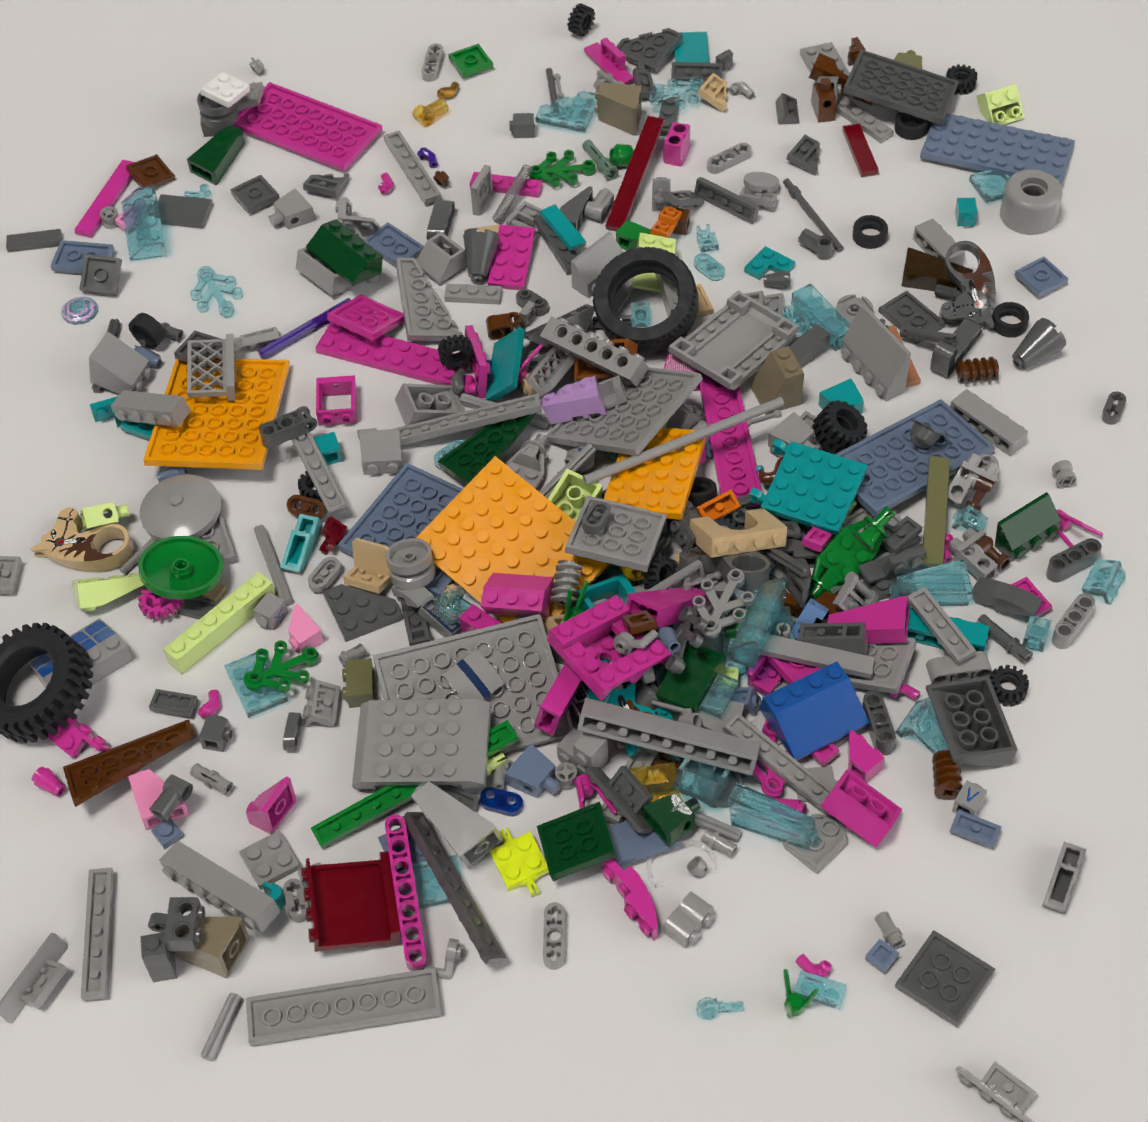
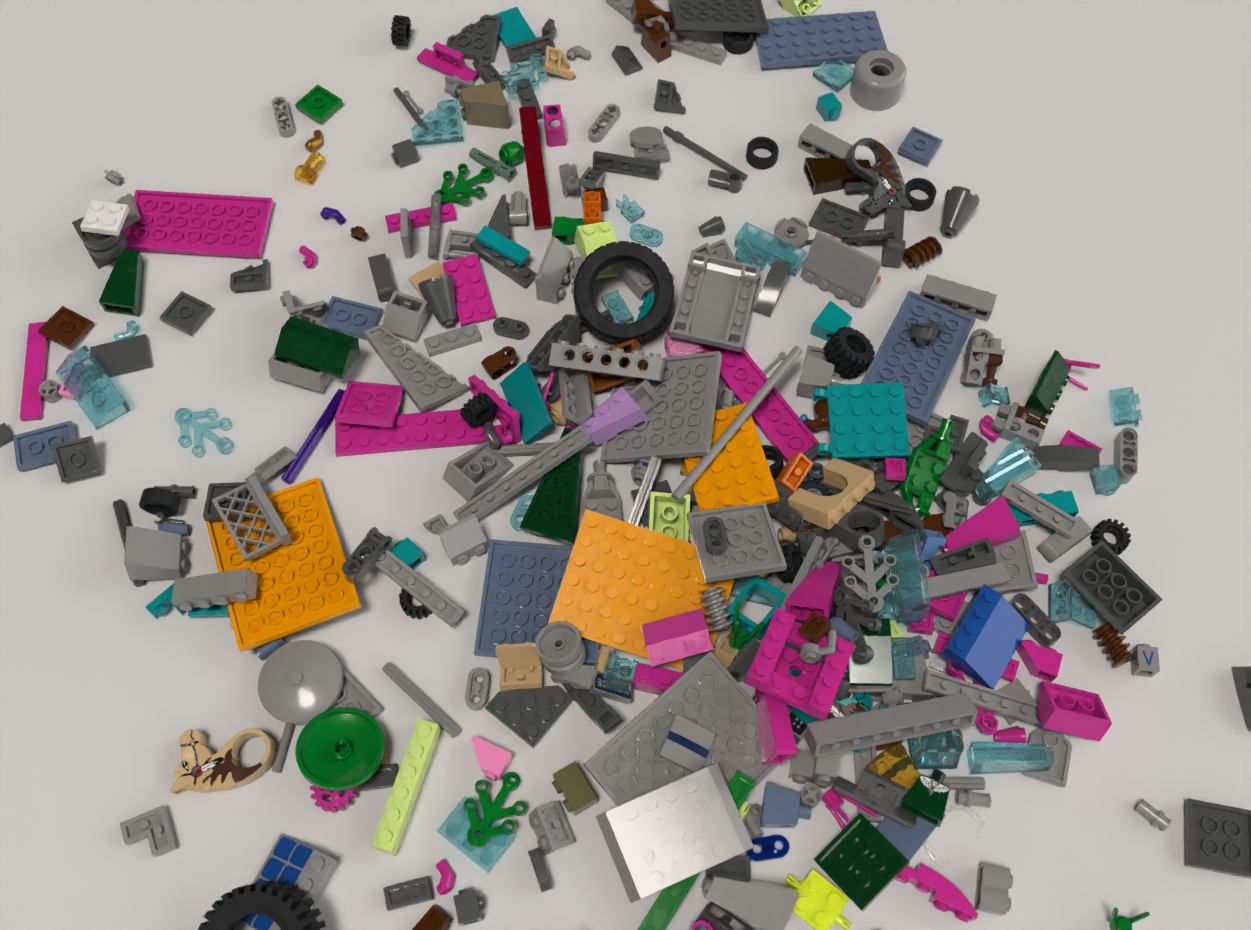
camera: 30 degrees left, 10 degrees up
(79, 310) = (77, 508): dish -> none
(93, 516) = (218, 728): yellowish green torso -> none
(97, 591) = (266, 807): yellowish green wedge -> none
(270, 611) = (448, 752): light grey brick -> none
(292, 210) = (233, 317): light grey torso -> none
(301, 543) = (437, 667): teal slope -> none
(307, 506) = (422, 627): reddish brown plate -> none
(326, 387) = (380, 486): dark pink window -> none
(333, 532) = (461, 641): dark red plate -> none
(352, 654) = (550, 761): light grey pin -> none
(412, 167) = (324, 231): light grey plate -> none
(527, 314) = (516, 341): light grey tile -> none
(697, 866) = (966, 826): light grey hinge -> none
(768, 260) = (693, 210): teal plate -> none
(779, 378) = (774, 327): dark tan slope -> none
(822, 969) = (1115, 883): dark pink arm -> none
(829, 993) = (1134, 901): clear light blue plate -> none
(860, 150) = (709, 77): dark red tile -> none
(882, 955) = (1161, 843): sand blue plate -> none
(935, 510) = (969, 398): olive tile -> none
(975, 829) = (1162, 685): sand blue plate -> none
(1011, 644) = (1089, 497): dark grey pin -> none
(1063, 472) = (1041, 322): light grey wheel -> none
(1073, 560) = (1093, 399): dark grey beam -> none
(1111, 407) = (1045, 245): dark grey beam -> none

